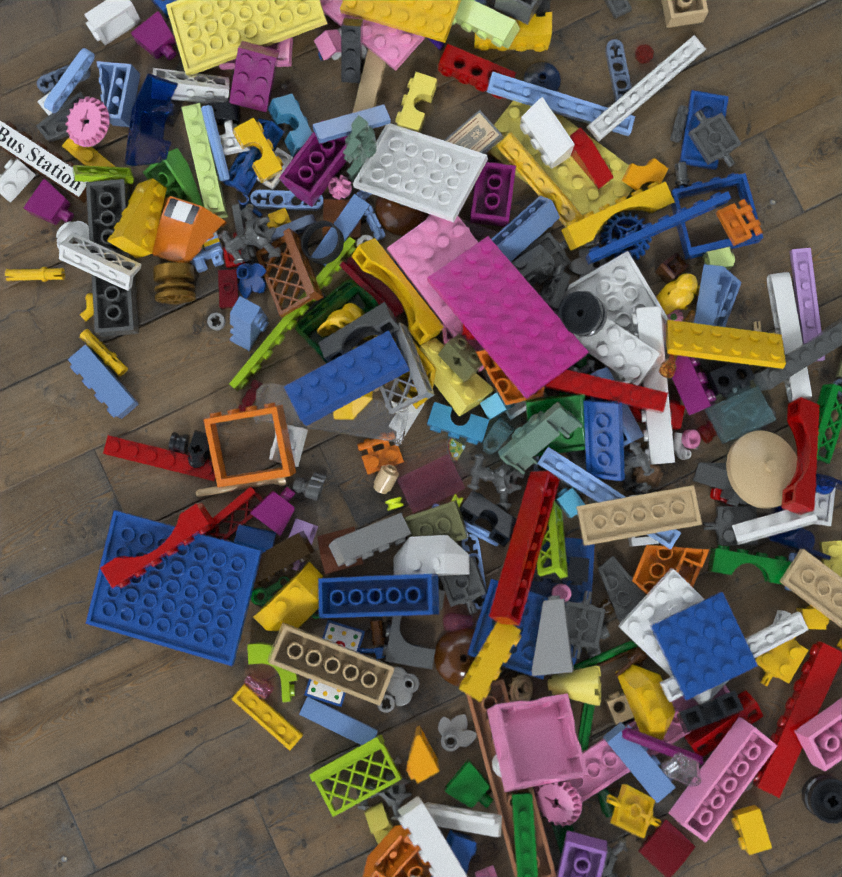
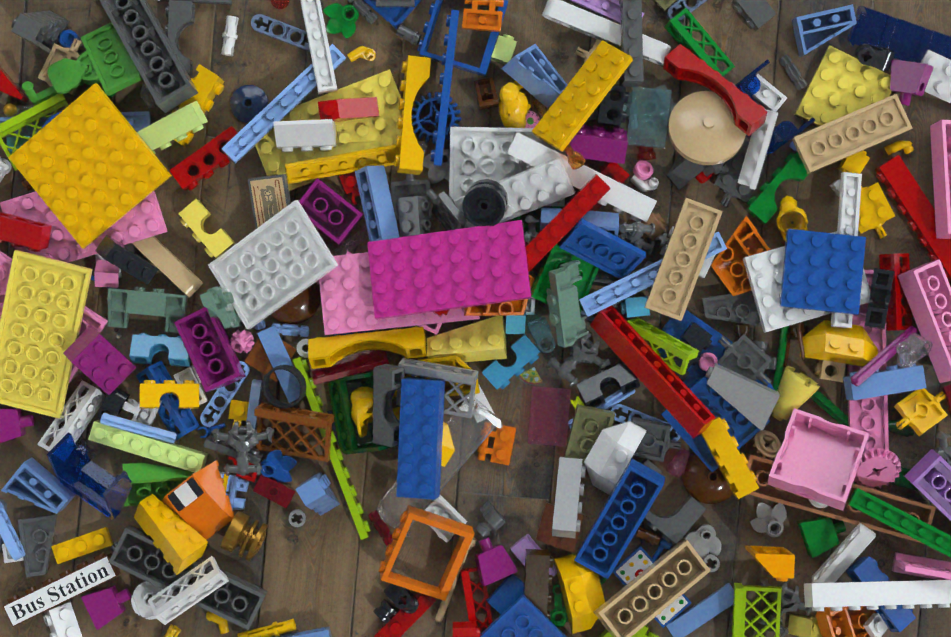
camera: 60 degrees left, 5 degrees up
(92, 132) = (48, 518): bright pink gear -> none
(101, 173) = (107, 543): lime tile -> none
(323, 85) = (138, 301): none -> sand green bracket
(341, 125) = (192, 304): medium blue tile -> none
(385, 478) = (522, 452): tan brick -> none
(394, 503) = (547, 457): neon yellow bush -> none
(461, 357) = (459, 328): olive brick -> none
(524, 201) = (350, 185): none -> red plate
(588, 31) = (229, 35): none -> white pin
(638, 175) = (391, 60): light orange tile -> none
(642, 146) = (362, 52): none -> yellow arm
(657, 111) = (338, 20): none -> green plate
(733, 588) = (788, 213): none -> yellow piece

